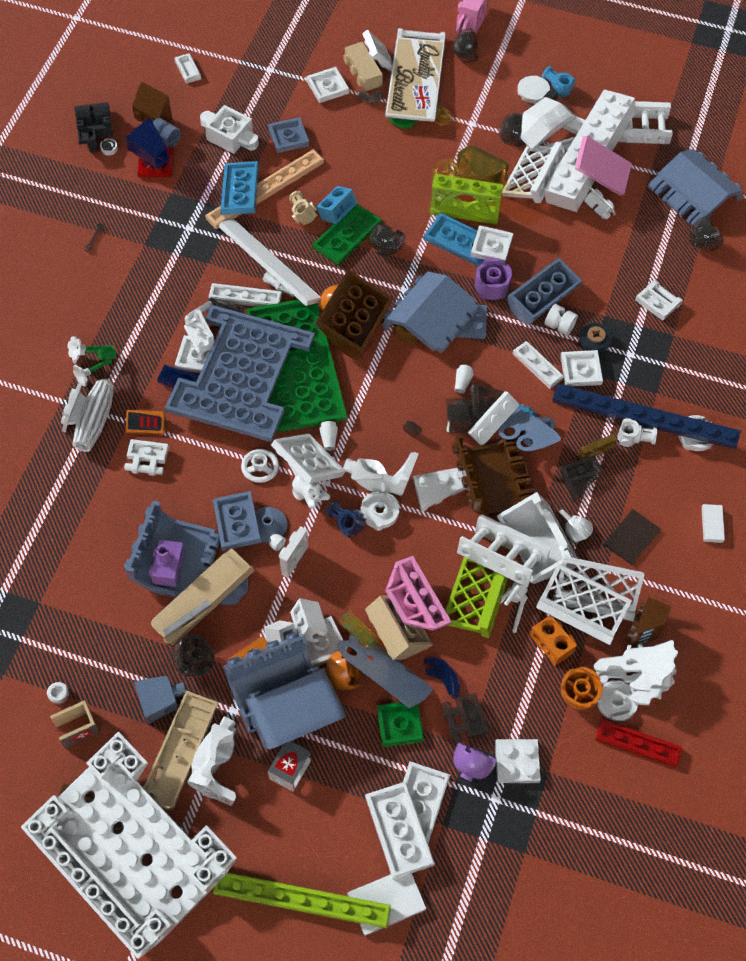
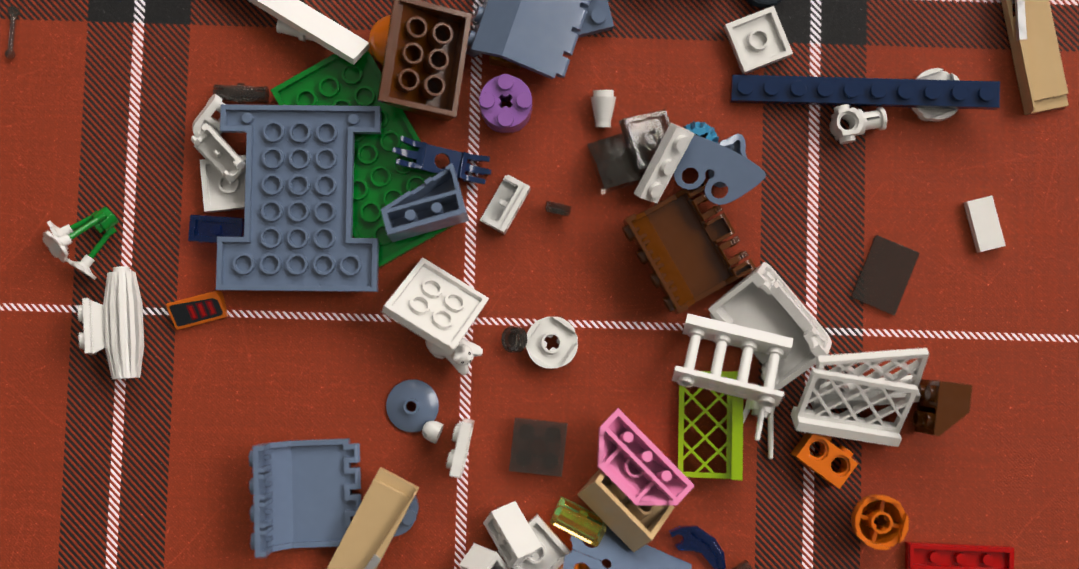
camera: 20 degrees left, 25 degrees up
(148, 452) = (215, 354): white plate -> none
(167, 563) = (303, 513): medium lavender brick -> none
(236, 520) = (371, 420): sand blue plate -> none
(245, 295) = (260, 64): white tile -> none
(259, 456) = (358, 338): white piece -> none
(323, 398) = (427, 208): none -> sand blue wedge
(328, 433) = (449, 251): white cone -> none
(332, 373) = (426, 160): none -> dark blue piece
(345, 518) = (516, 374): dark blue connector -> none
(347, 573) = (538, 446): none -> clear smoke plate
(354, 500) = (514, 339): none -> clear smoke tile
(374, 478) = (524, 299): white hips -> none
(378, 418) = (505, 204): none -> white hinge
(398, 358) = (505, 89): none -> medium lavender brick
(436, 486) = (615, 283): white wing -> none
(538, 364) = (696, 50): white tile -> none
(577, 527) = (813, 286): white piece -> none
(580, 475) = (798, 208): clear smoke wing -> none
(598, 447) = (806, 164): pearl gold tile -> none
(615, 701) = (925, 509): white tile -> none
(653, 669) = (960, 462): white animal -> none

